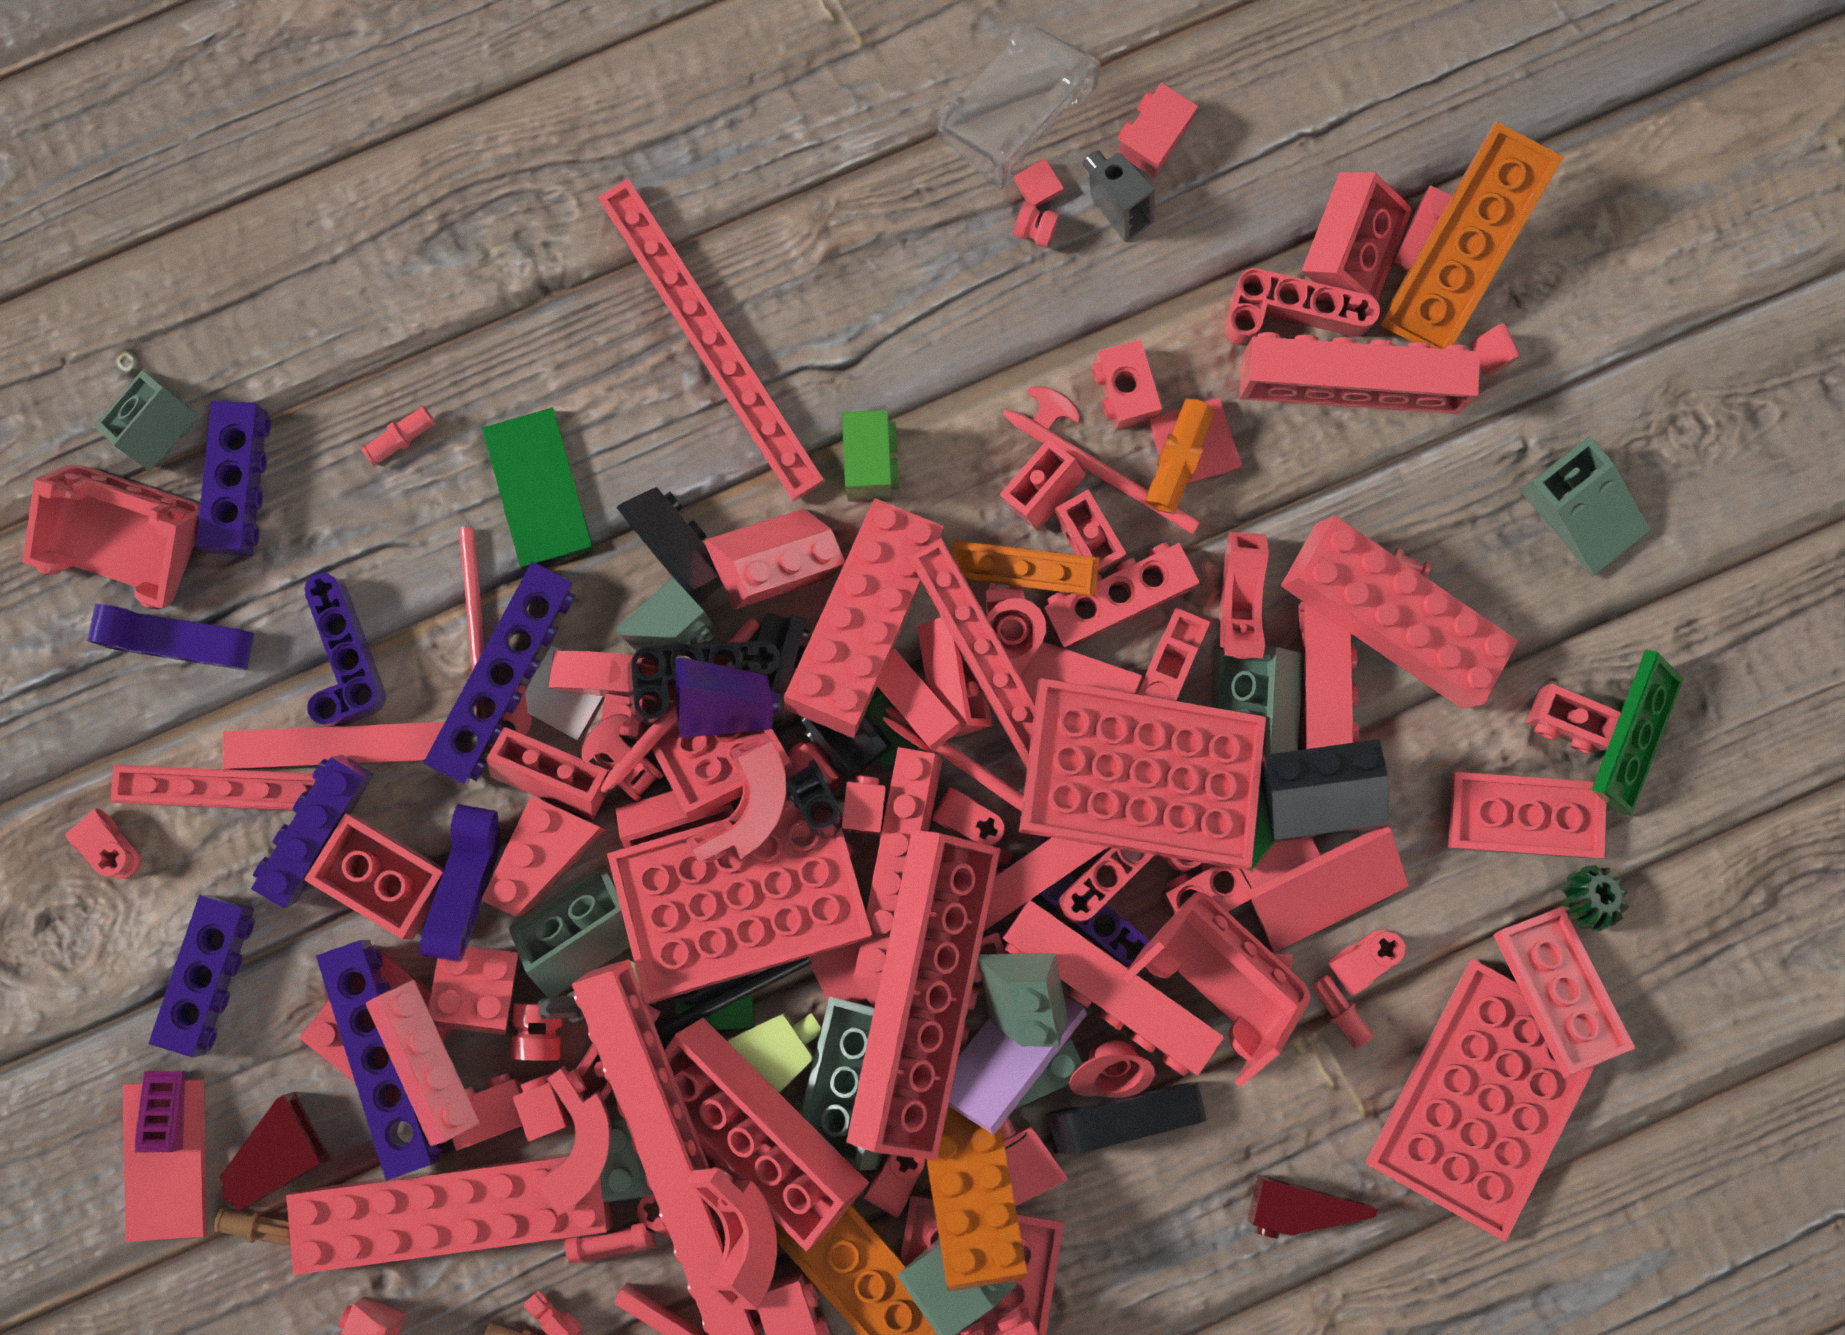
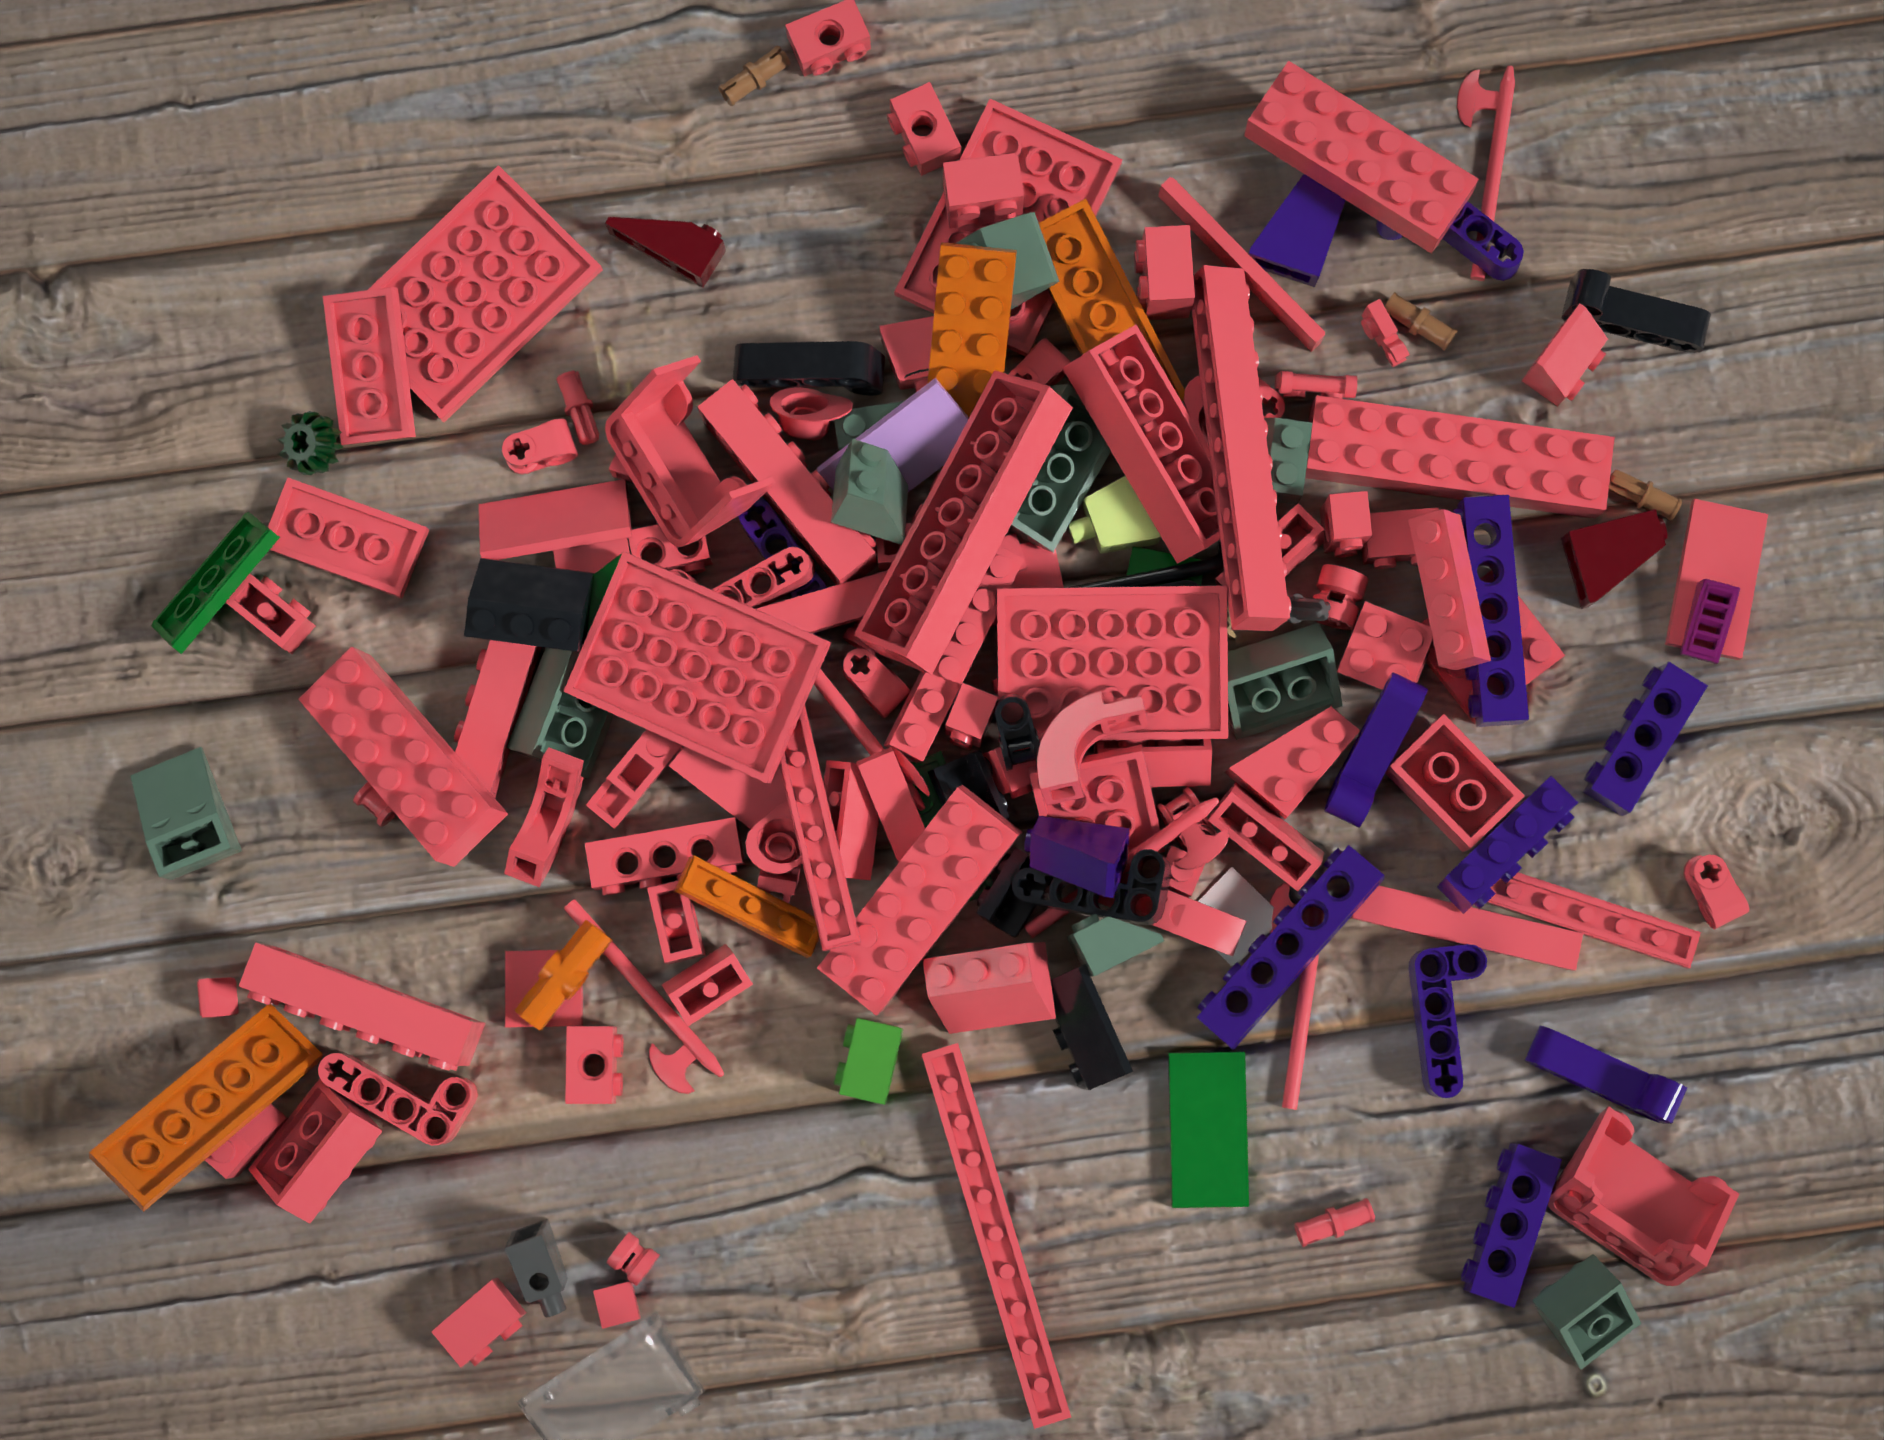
camera: 165 degrees left, 0 degrees up
(593, 1135) = (1323, 453): coral arch -> none
(749, 1237) = (1185, 351): coral arch -> none

